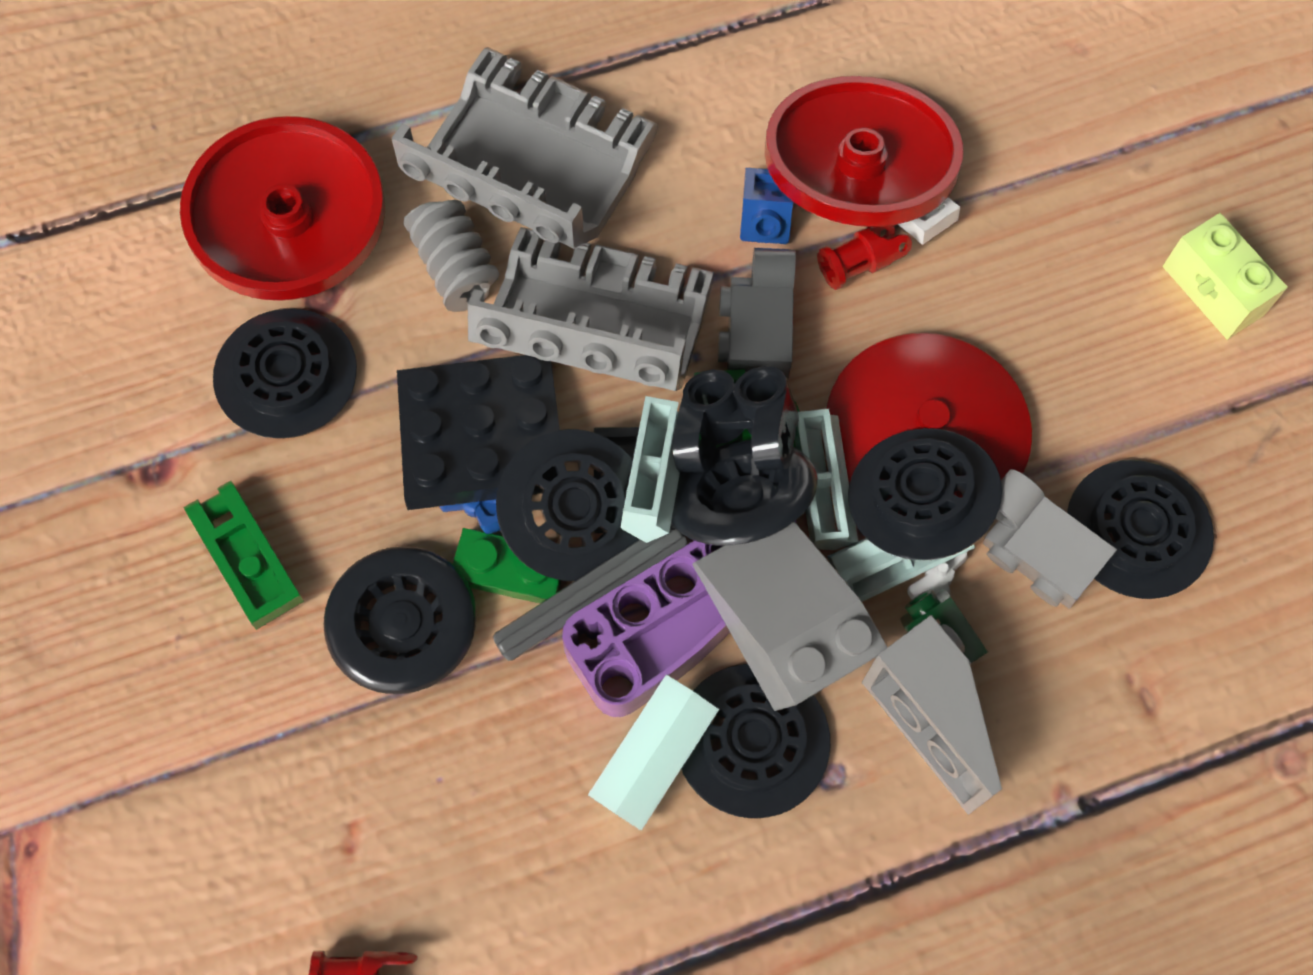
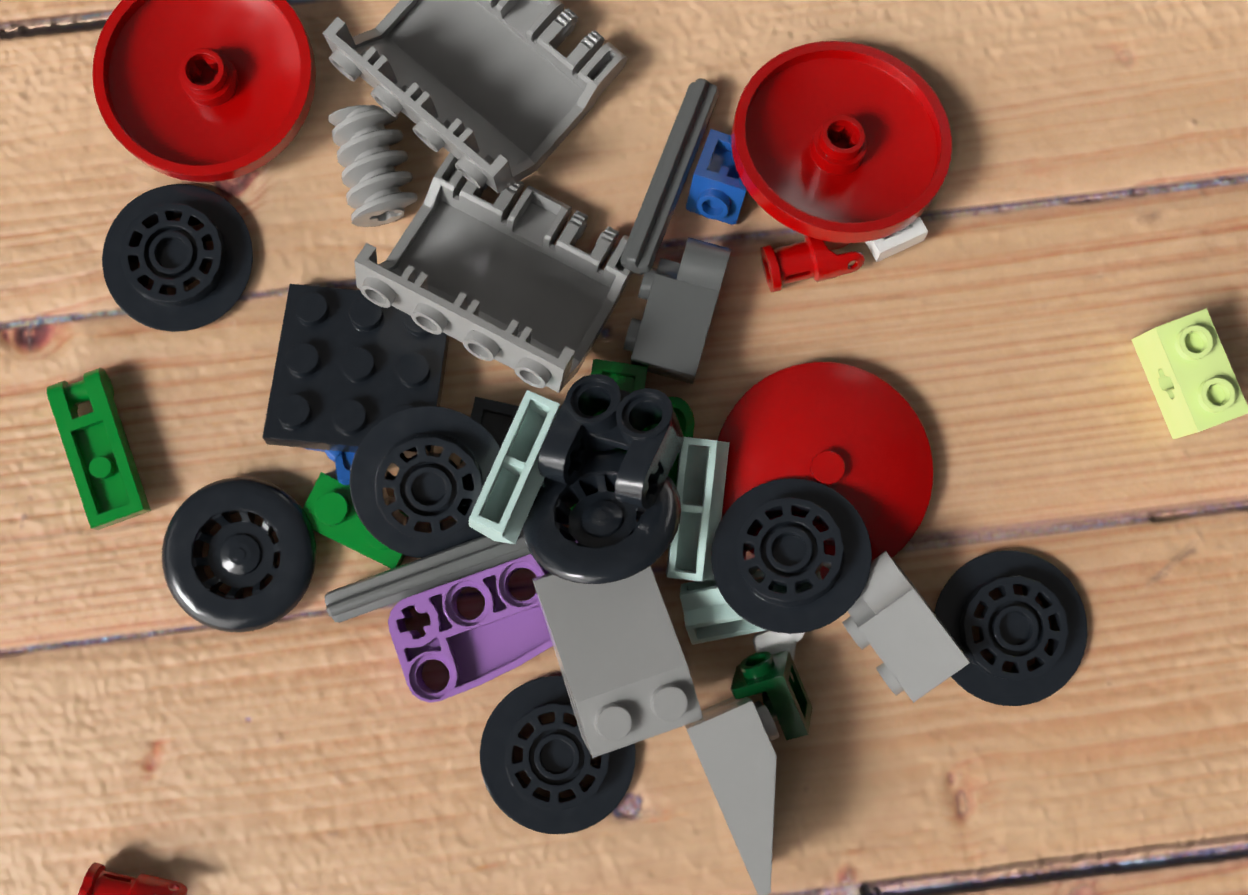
camera: 15 degrees right, 15 degrees up
(653, 752) = (453, 752): light aqua piece -> none
(721, 212) = (670, 177): none -> dark grey axle

